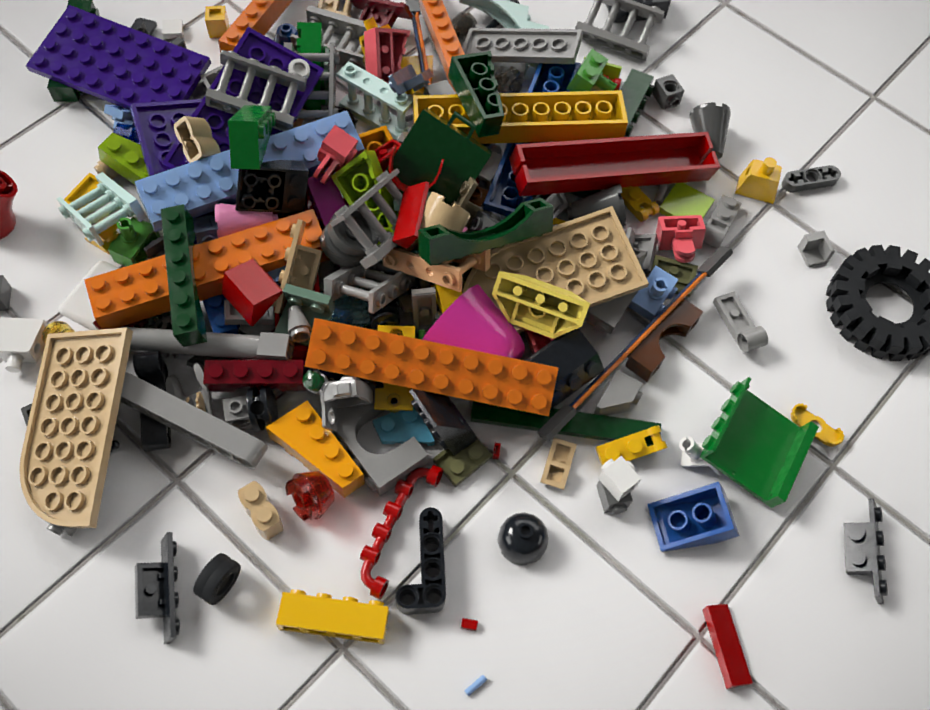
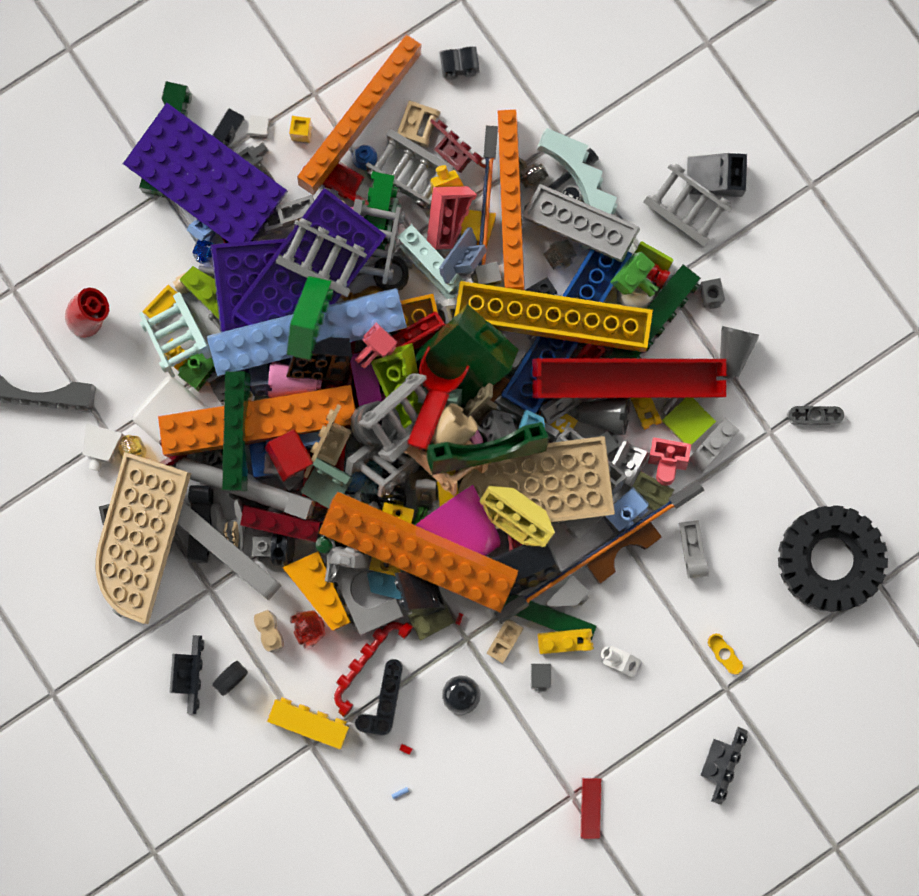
camera: 20 degrees right, 20 degrees up
(196, 138) = (263, 302): tan brick -> none
(298, 325) = (320, 491): light grey cone -> none
(300, 67) = (363, 236): white tile -> none
(477, 90) = (516, 291): dark green wedge -> none
(619, 477) = (544, 669): white brick -> none
(693, 518) = (596, 709): blue slope -> none
(757, 446) = (666, 662): green panel -> none
(760, 180) = (762, 413): yellow torso -> none
(816, 248) = (788, 491): light grey panel -> none

